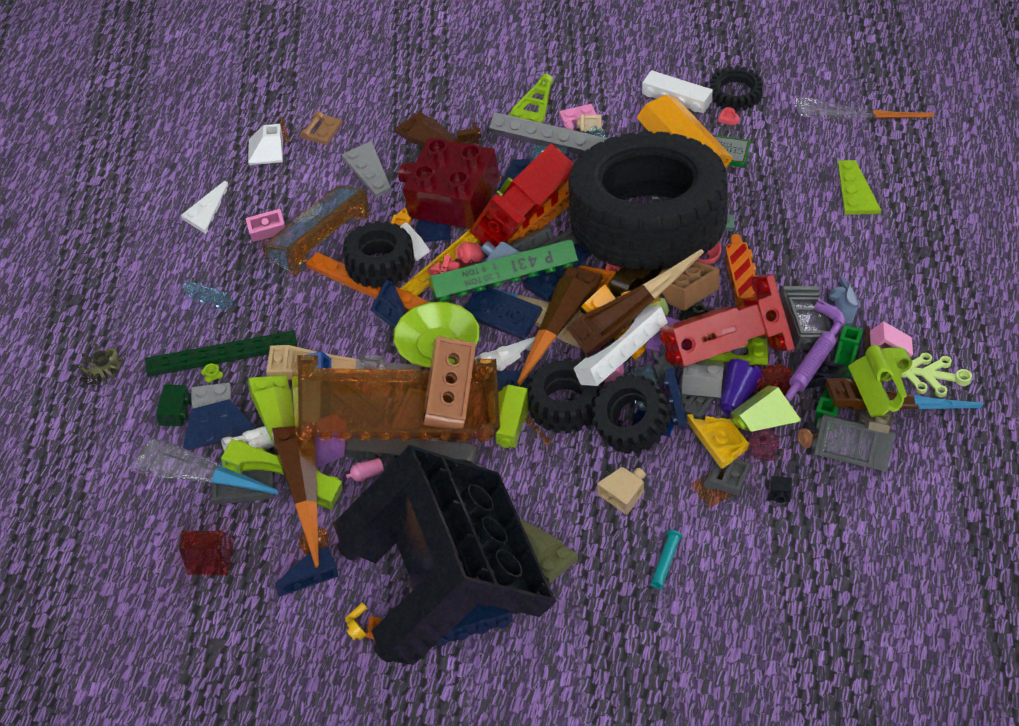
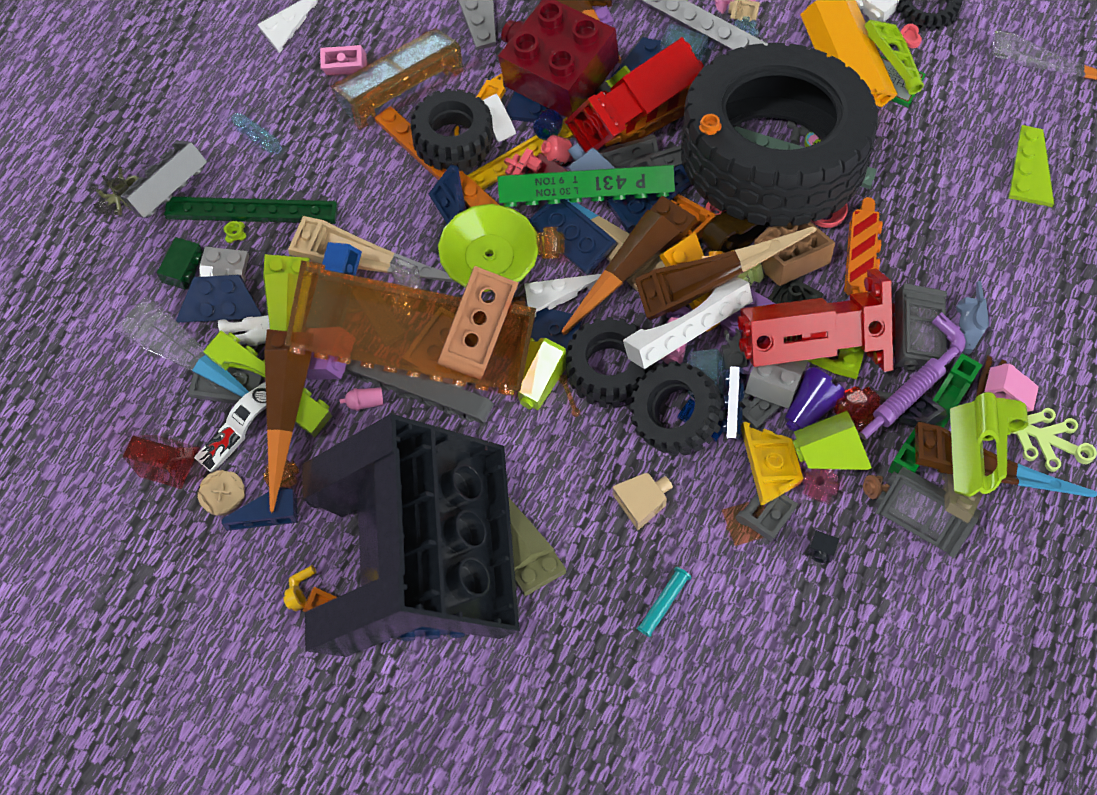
camera: 15 degrees right, 15 degrees up
(140, 342) = (164, 178): none -> wedge
(262, 516) = (234, 429): none -> piece
(264, 569) = (221, 492): none -> tan tile
(455, 235) = (547, 124): none -> clear blue head
(487, 320) = (550, 243): none -> clear orange head
(595, 195) = (710, 124): none -> orange plate
(713, 119) = (886, 34): none -> lime plate

